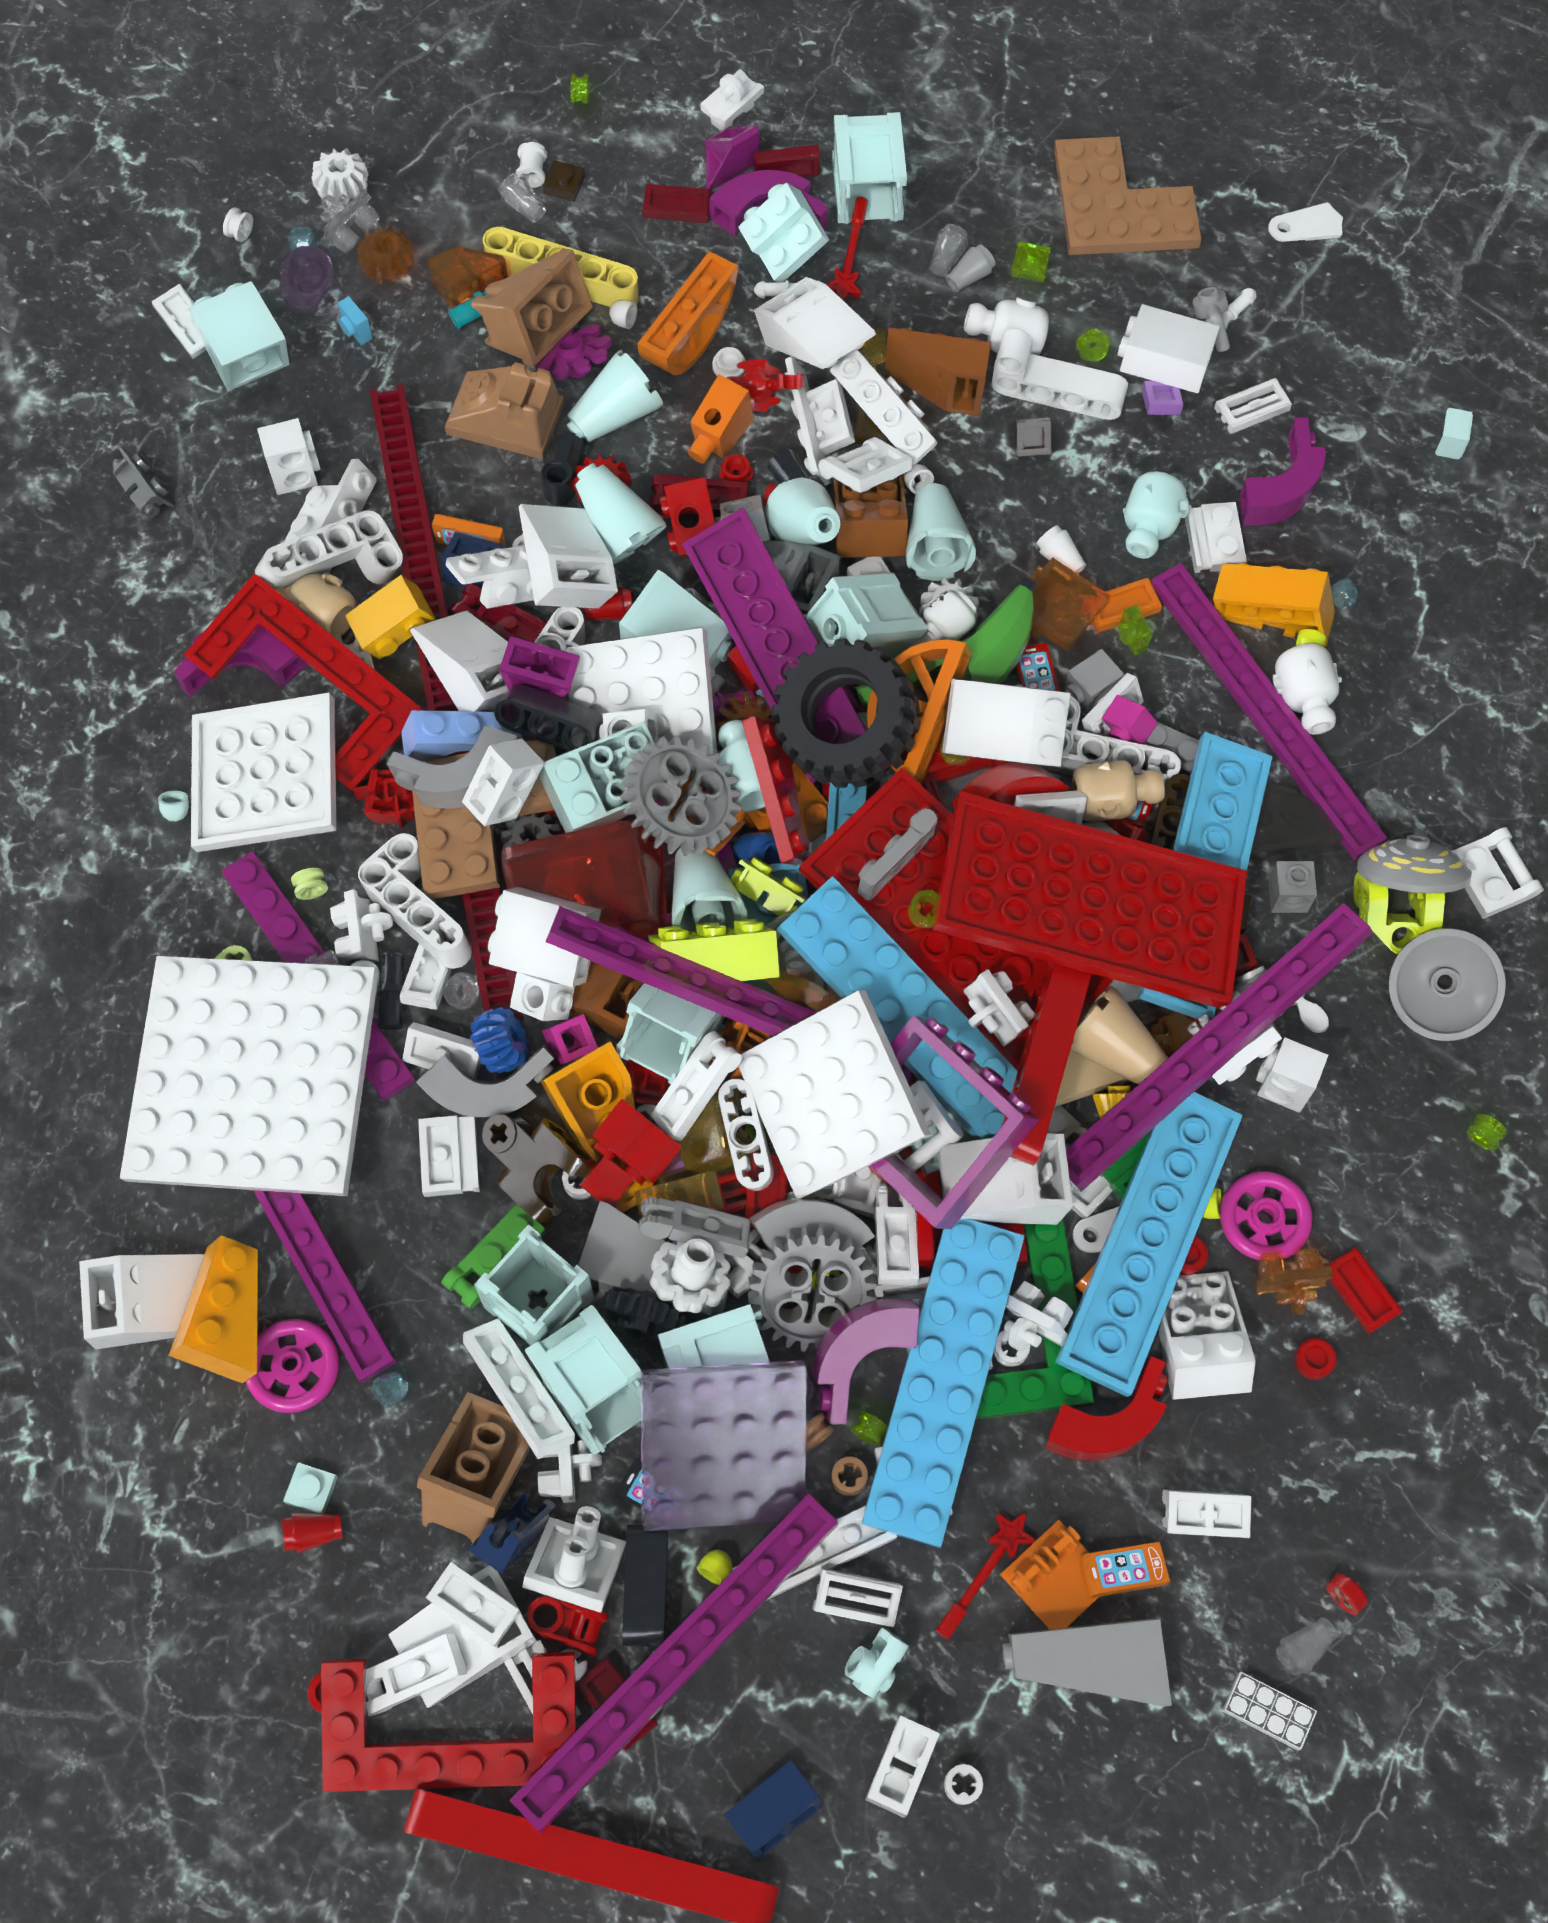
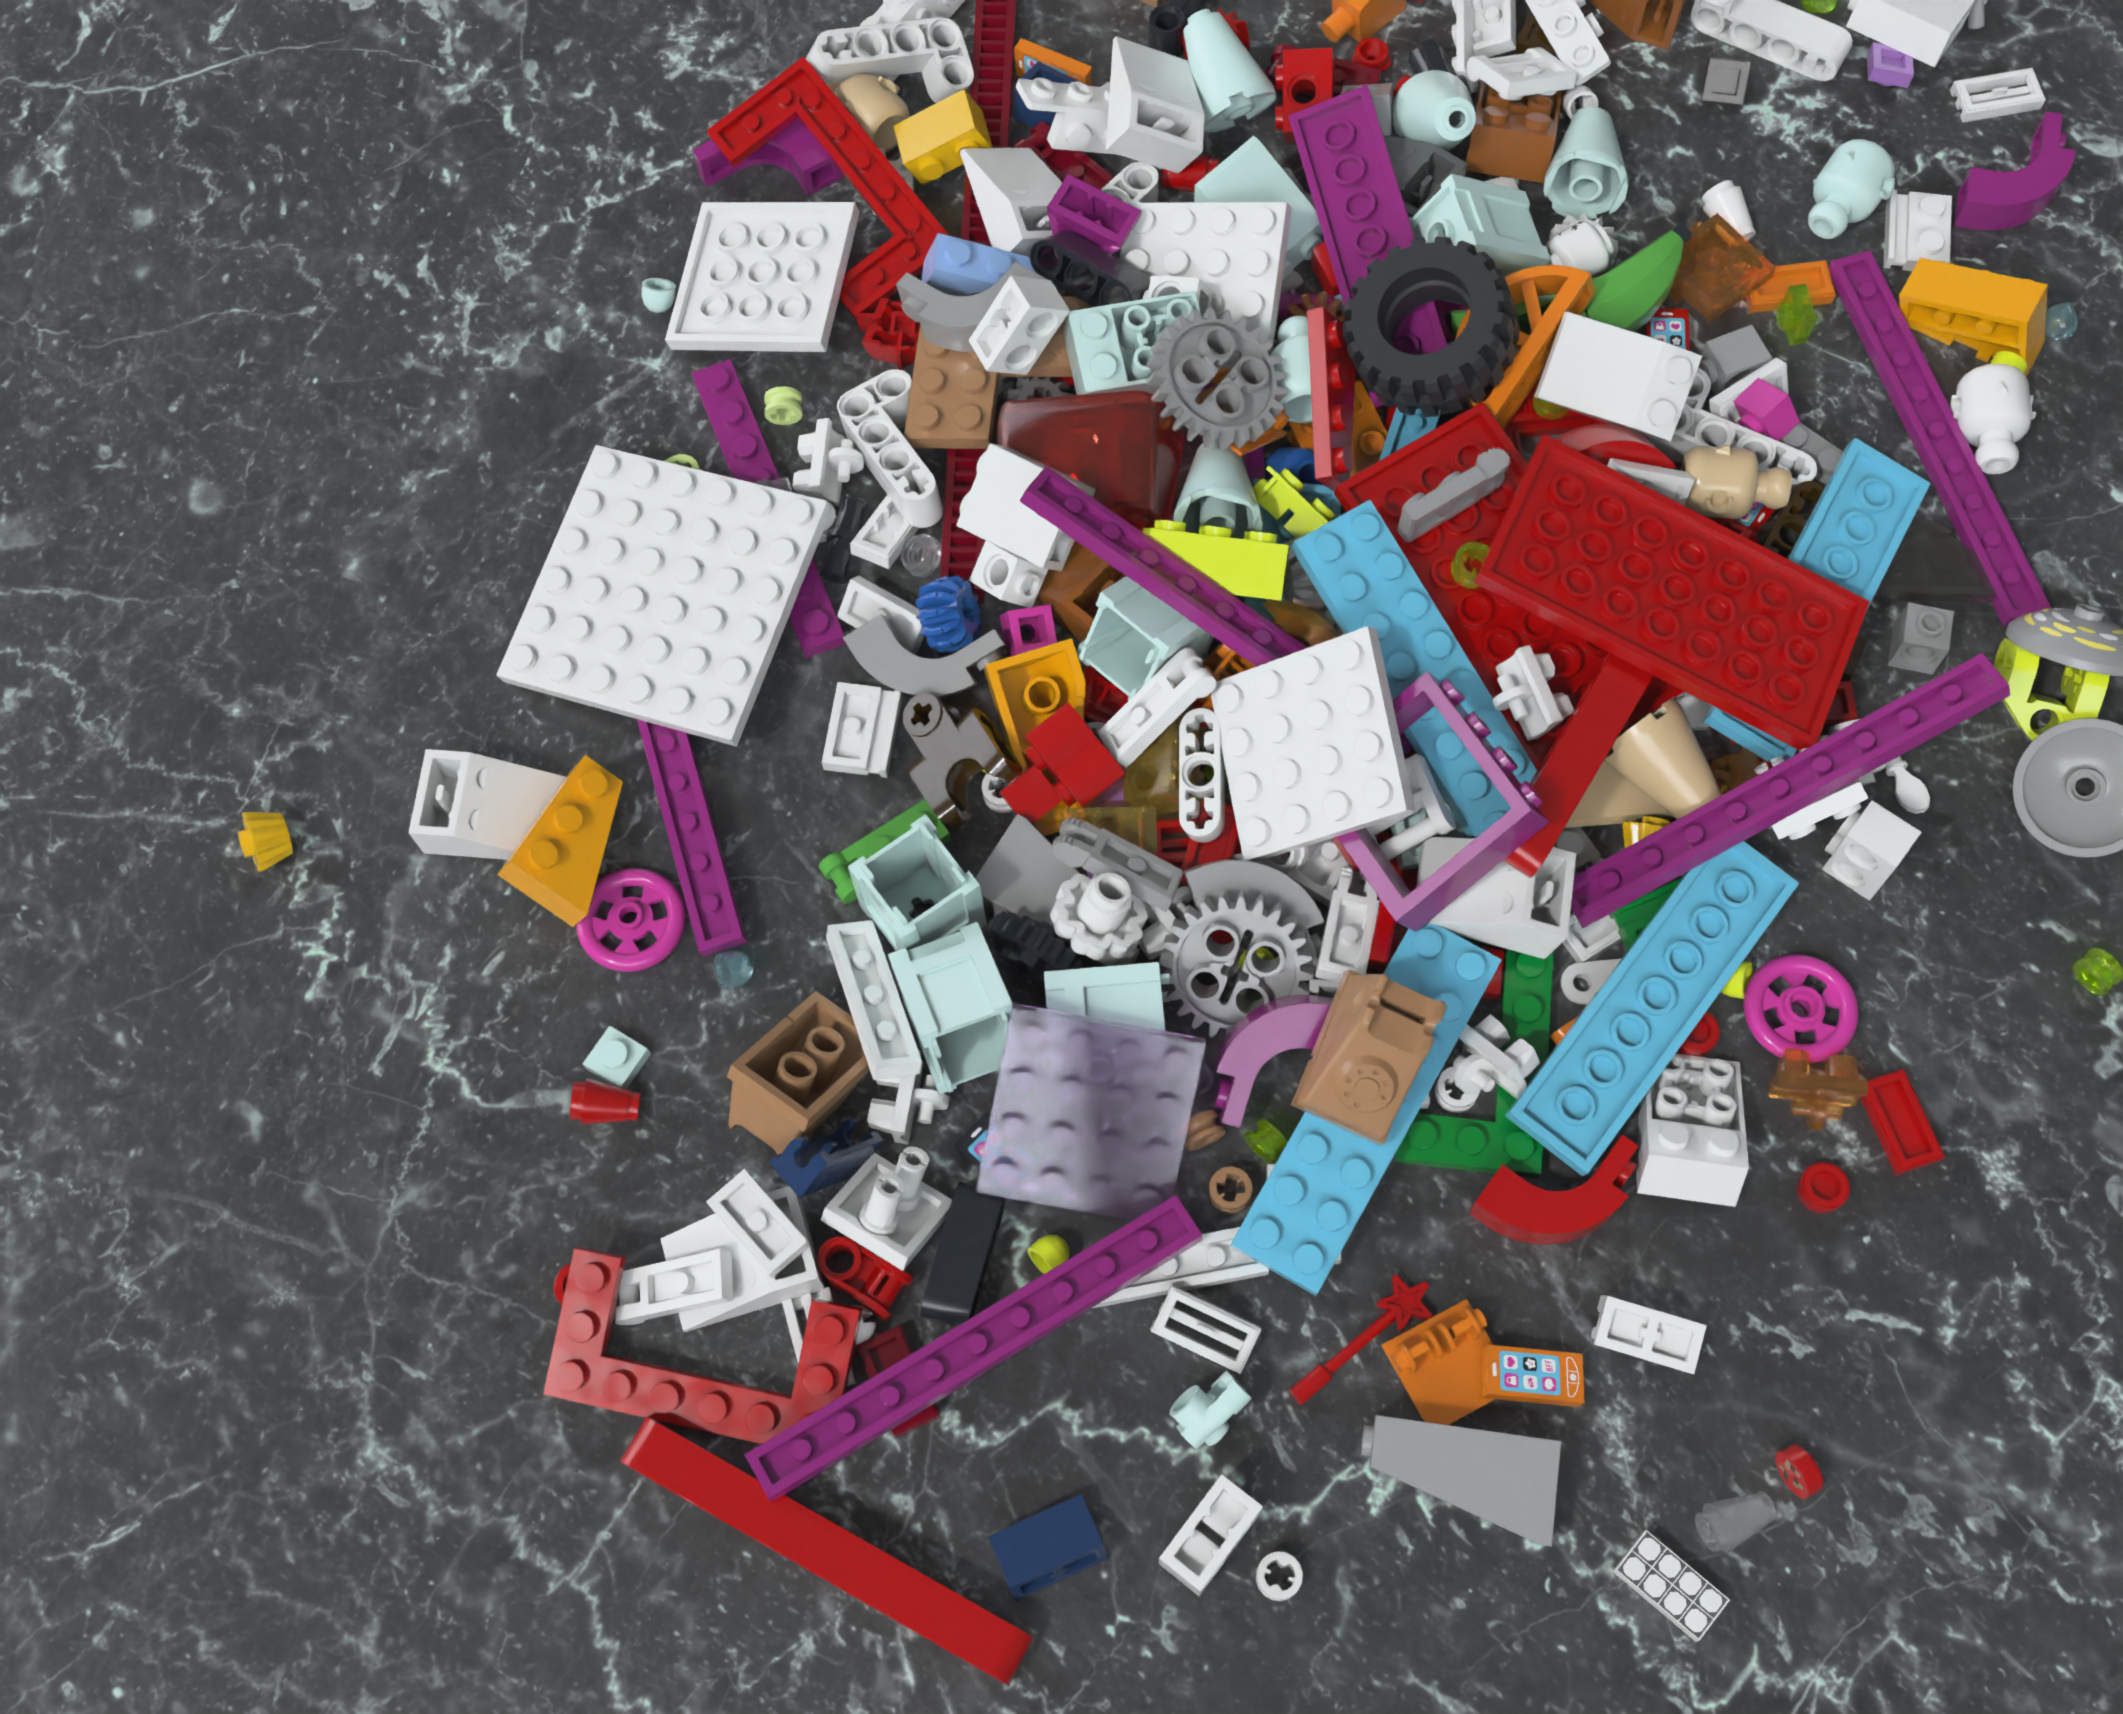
camera: 20 degrees right, 0 degrees up
(937, 1343) = (1368, 1054): none -> medium nougat piece

